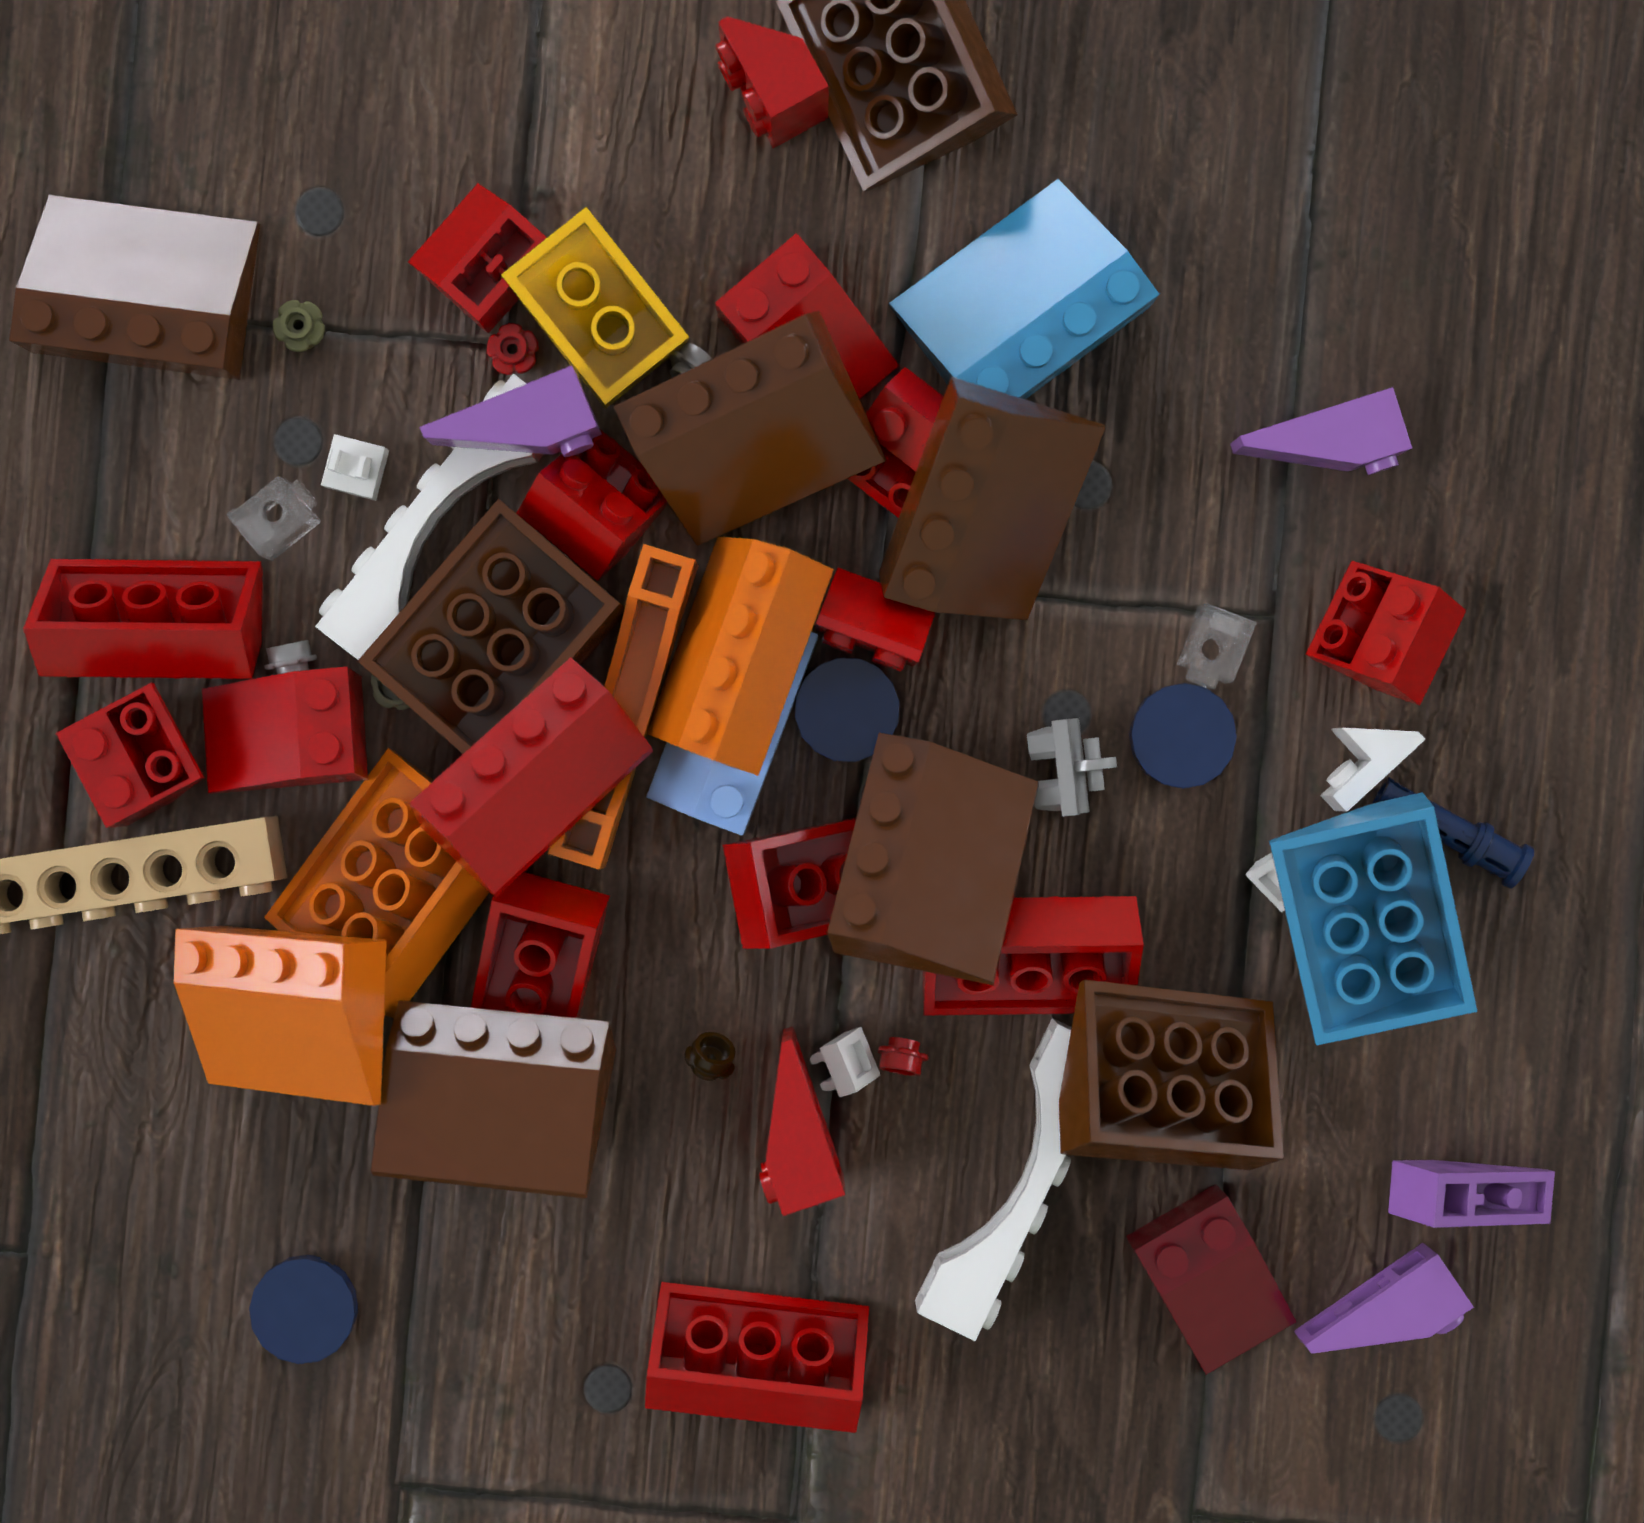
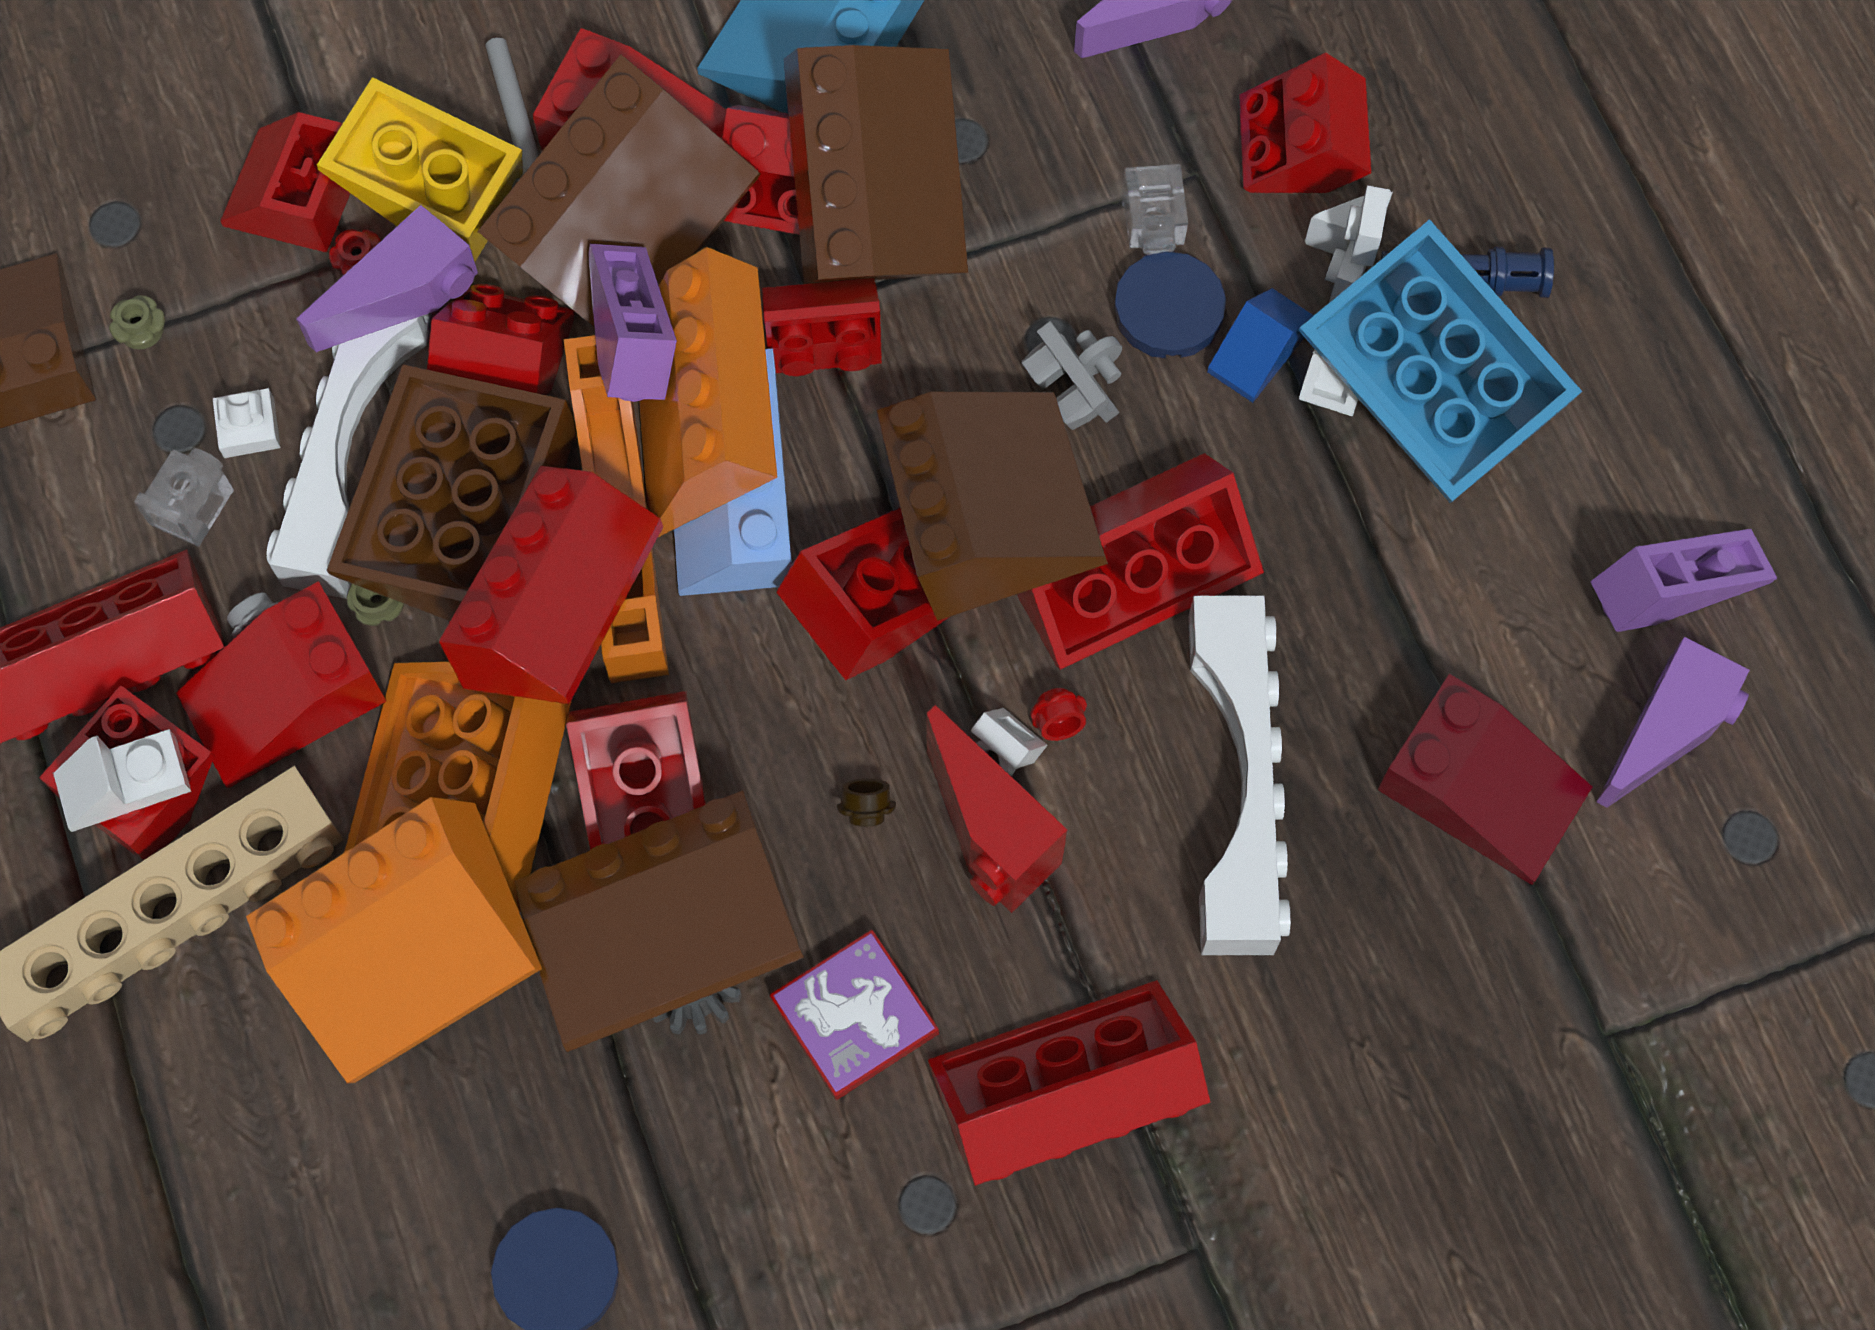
camera: 25 degrees left, 20 degrees down
(116, 777) = (115, 781): none -> white slope
(623, 1223) = (854, 1014): none -> tile
(703, 563) = (630, 323): none -> medium lavender slope
(710, 267) = (512, 100): none -> light grey bar
(845, 708) = (834, 424): dark blue tile -> none
(1171, 1078) = (1333, 596): reddish brown slope -> none
(1243, 809) = (1259, 343): none -> blue slope
(1381, 772) = (1366, 225): none -> white plate

